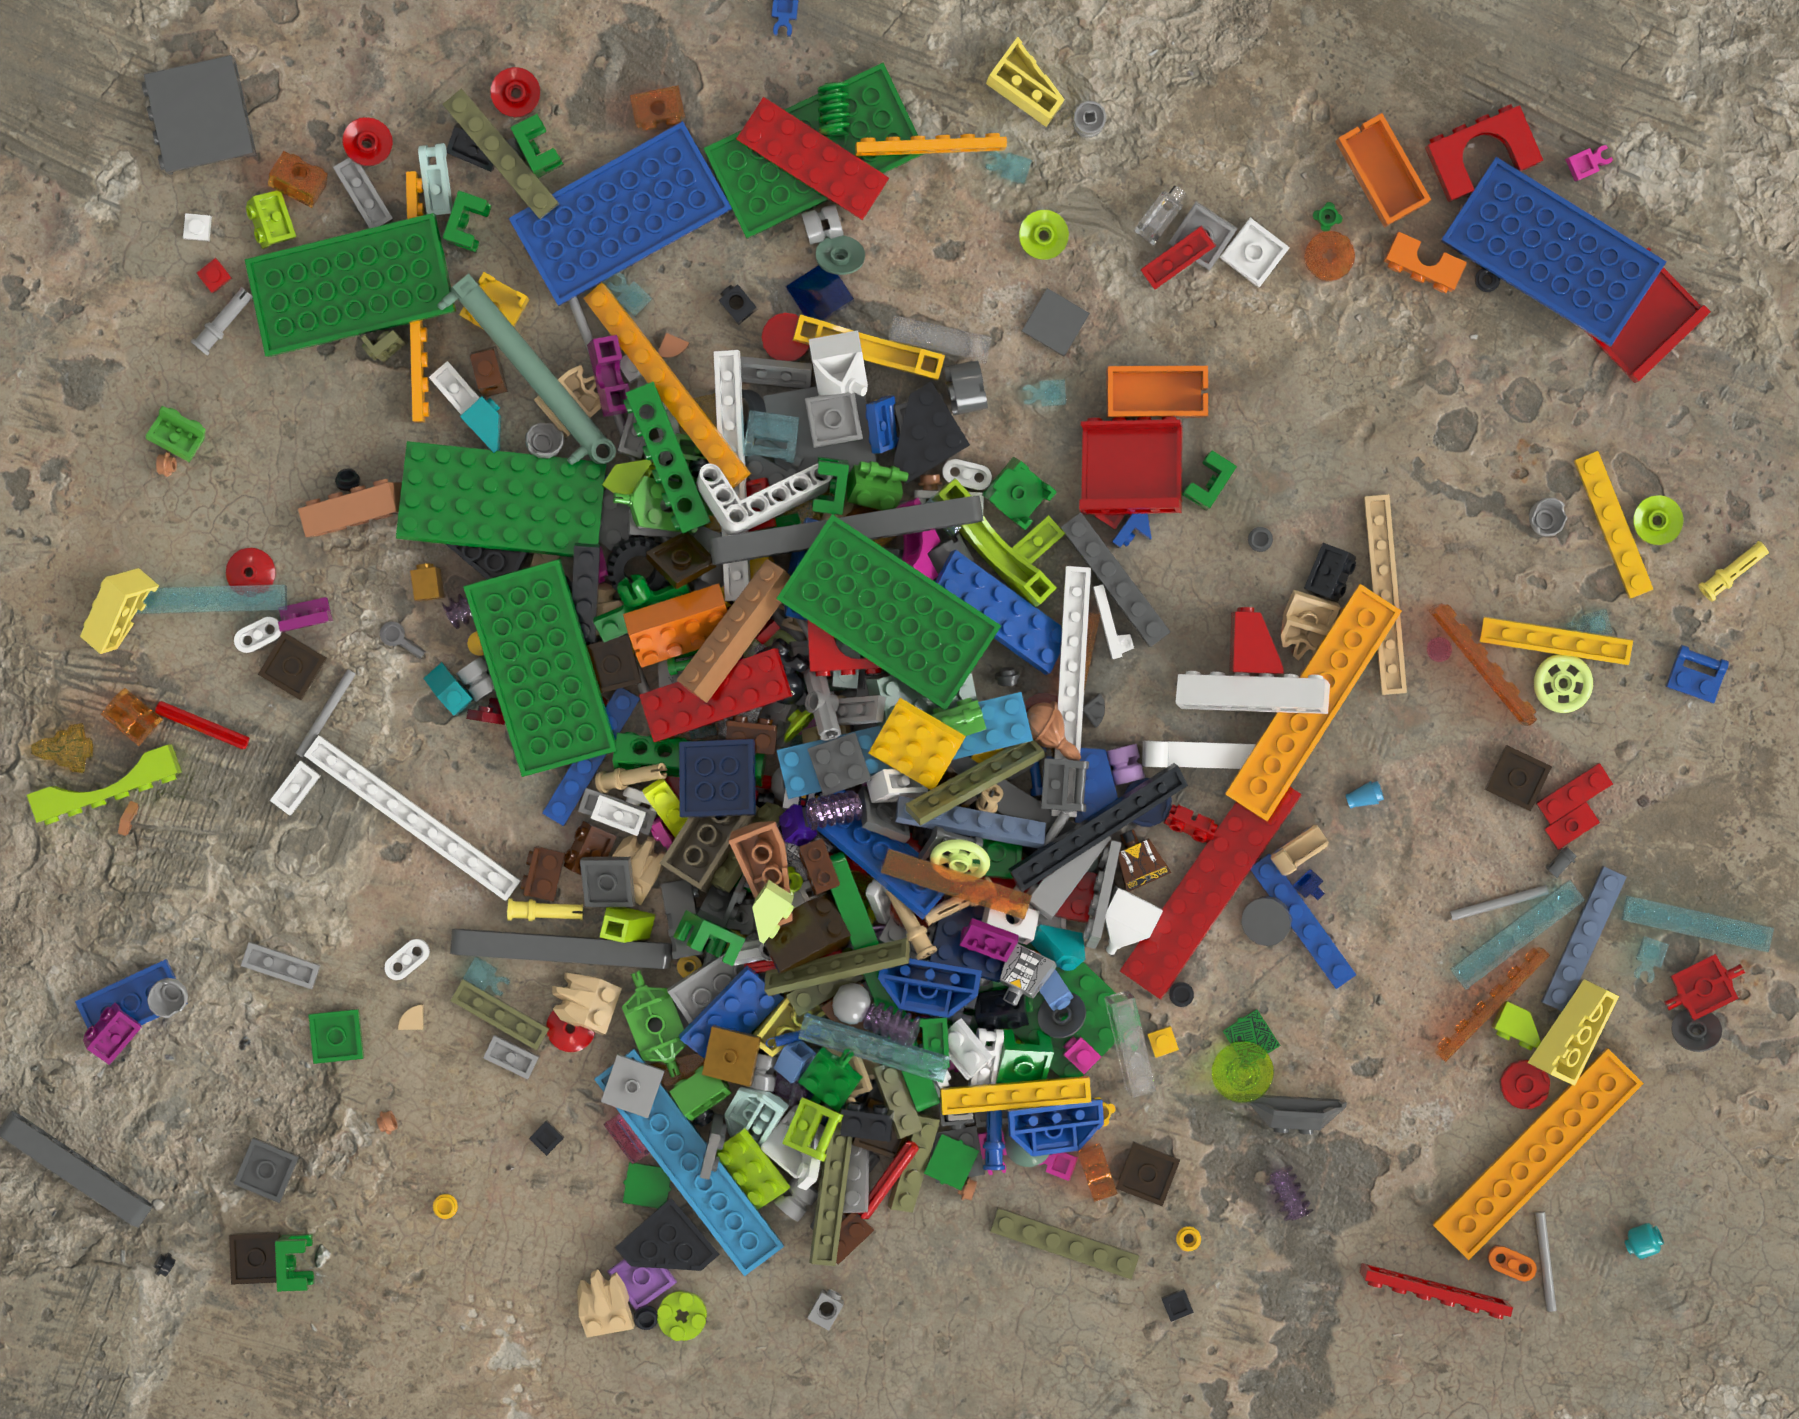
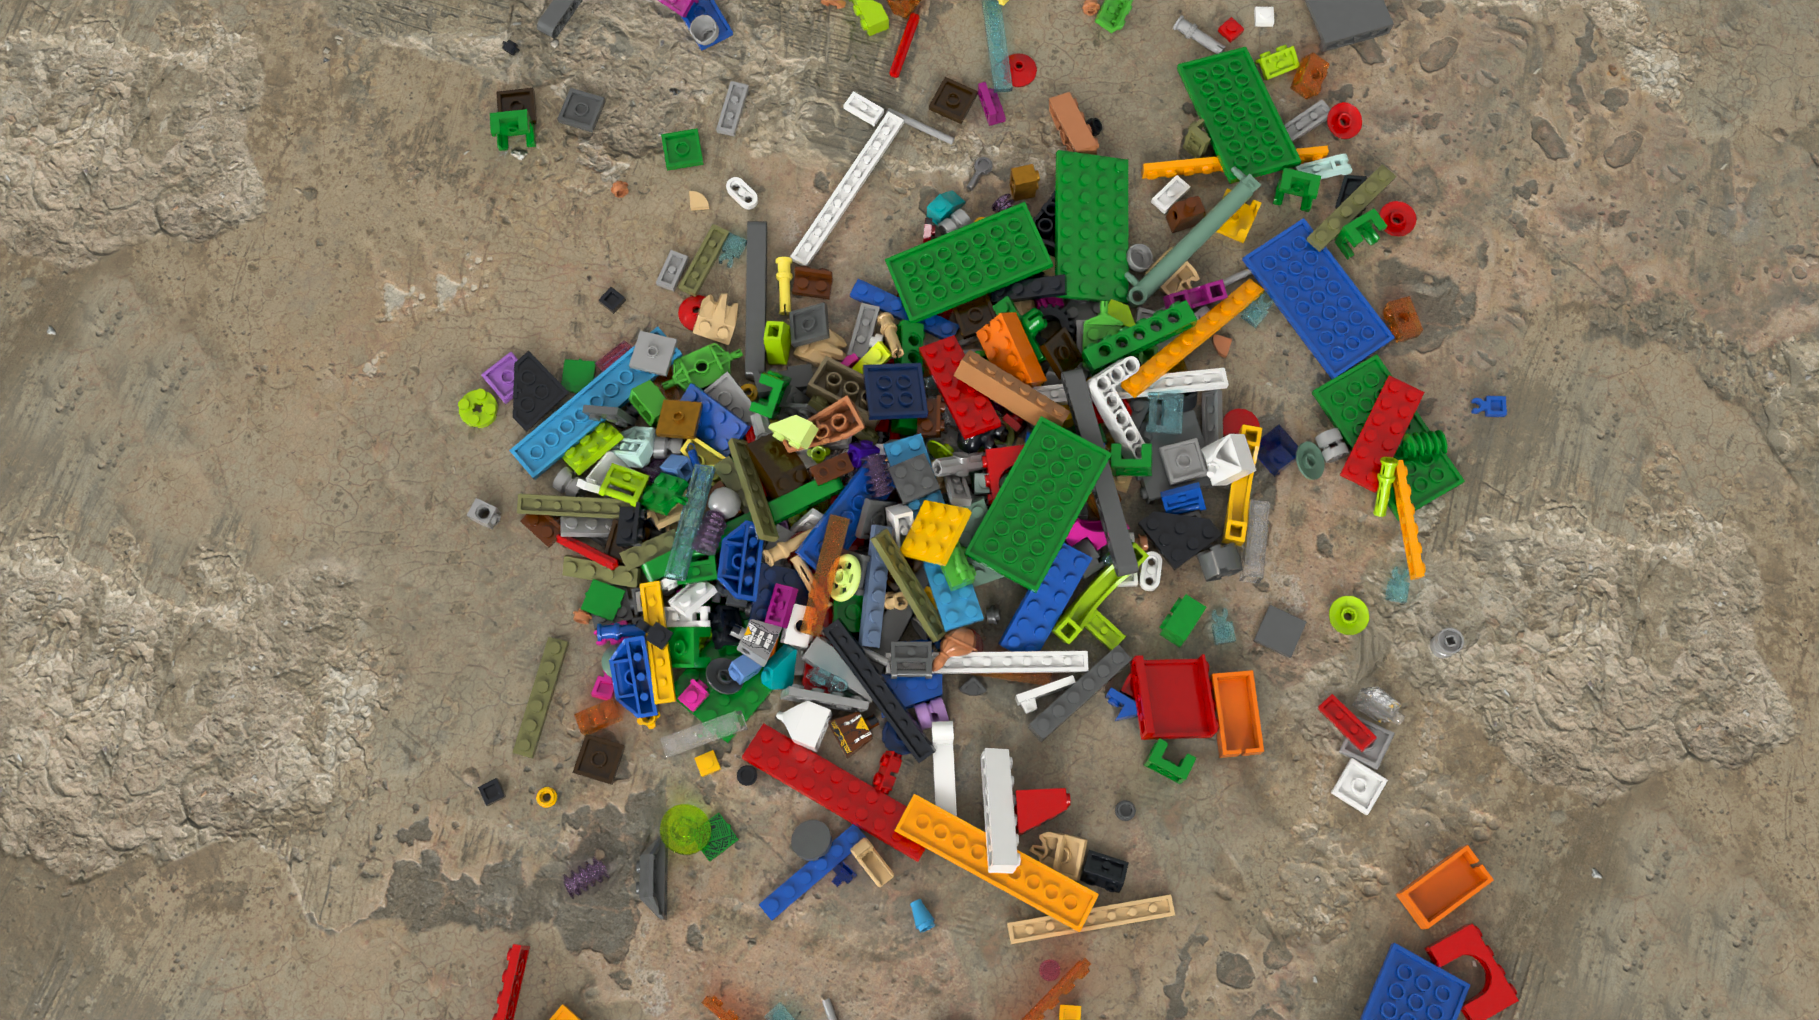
camera: 80 degrees right, 15 degrees down
(258, 634) = (974, 77): white plate -> none
(445, 1206) = (558, 233): yellow plate -> none
(485, 422) = (1148, 216): teal slope -> none
(588, 842) = (838, 314): reddish brown bracket -> none
(604, 1305) = (484, 349): tan plate -> none
(618, 815) = (860, 329): white plate -> none
(645, 1317) = (476, 381): black plate -> none
(740, 314) = (1258, 395): black brick -> none
(875, 485) = (1136, 497): bright green brick -> none
(877, 166) = (1386, 478): none -> lime pin
(1008, 1094) = (657, 634): none -> black plate
(1018, 492) = (1141, 610): green panel -> none
(1025, 84) = (1466, 590): light yellow wedge -> none
(1036, 444) = (1182, 621): none -> green brick
(1081, 895) = (822, 677): none -> clear light blue plate
(1328, 209) = (1403, 845): green plate -> none
(1340, 265) = (1372, 840): clear orange plate -> none
(1403, 256) = (1364, 946): orange arch -> none
(1495, 281) = (1358, 986): black plate -> none

